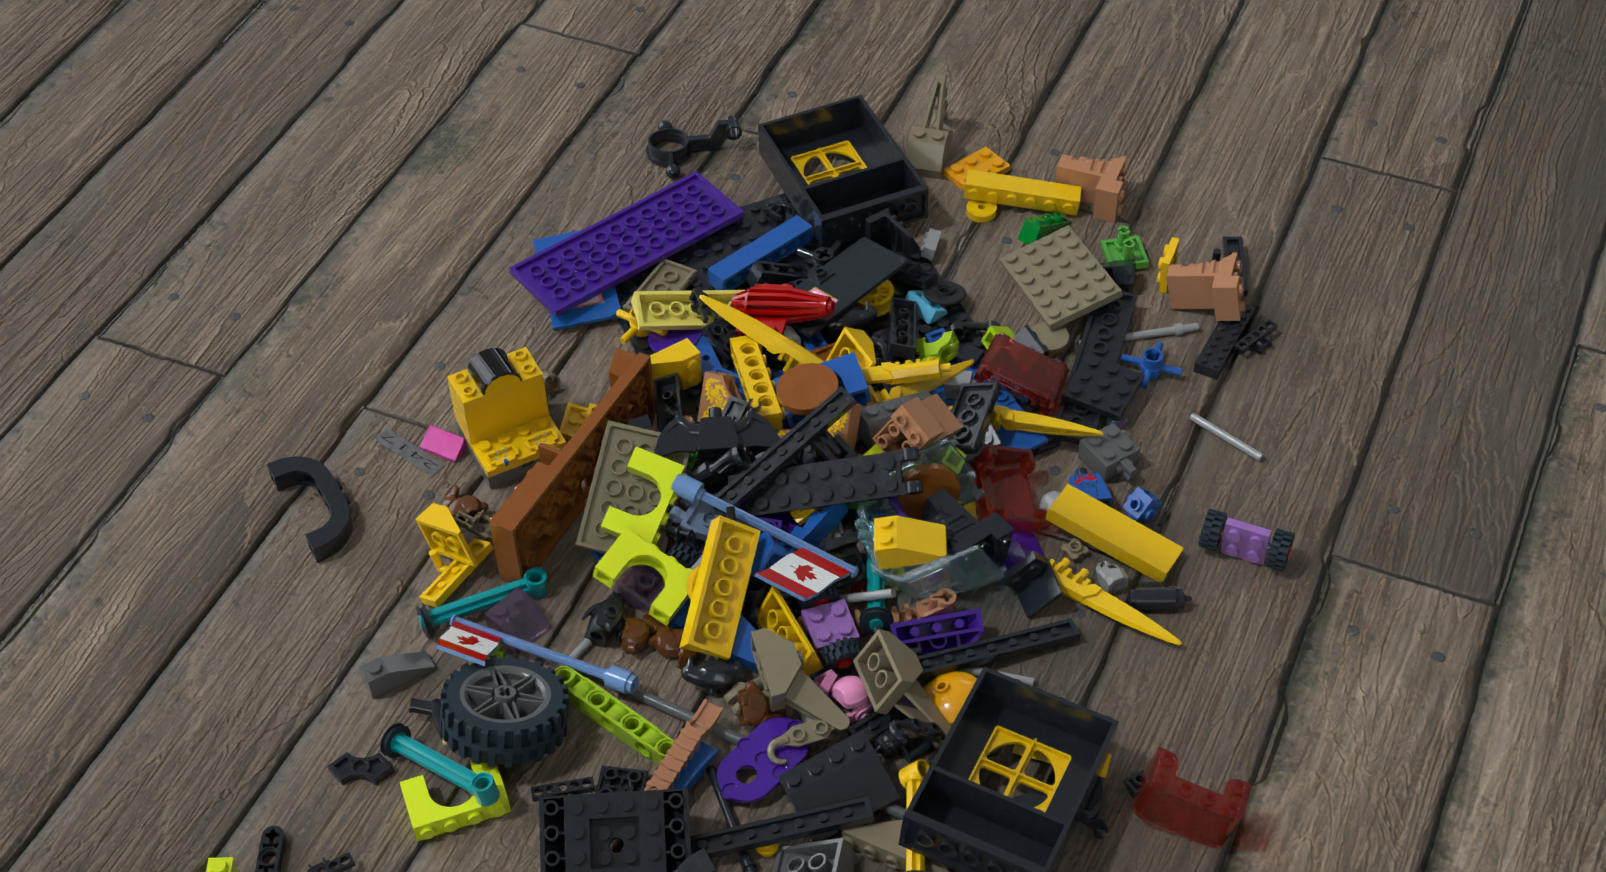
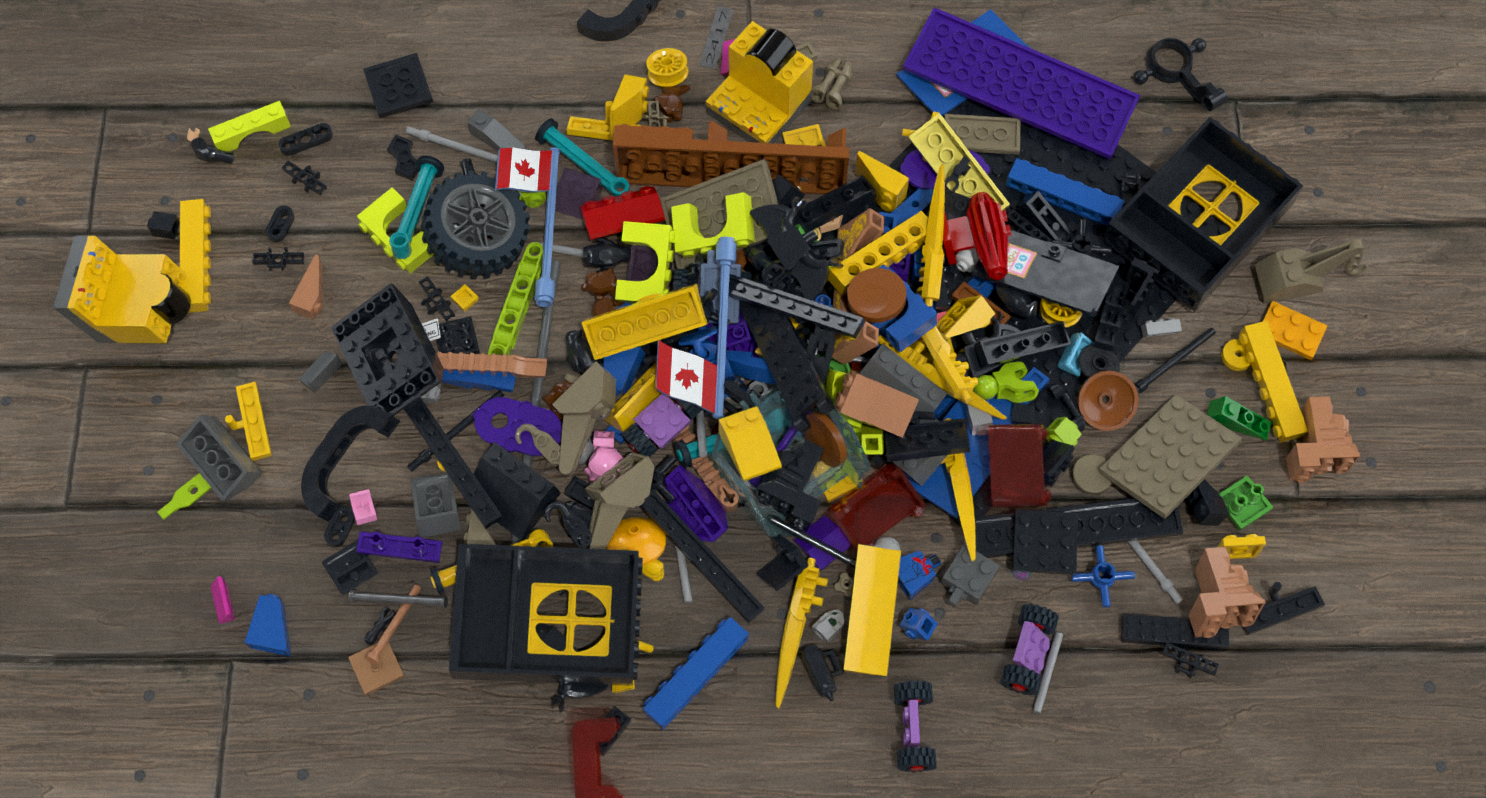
camera: 65 degrees right, 20 degrees up
(266, 743) = (398, 85): none -> black plate
(349, 737) = (426, 136): none -> light grey bar
(419, 493) = (667, 67): none -> yellow wheel
(568, 585) = (609, 214): none -> red slope
(577, 763) = (464, 298): none -> yellow plate
(977, 277) = (1142, 385): none -> black bar
(984, 297) = (1119, 407): none -> dark orange dish
(1022, 551) = (813, 541): none -> black bar
(1116, 697) = (696, 673): none -> blue brick
(1180, 416) = (1030, 649): none -> plate

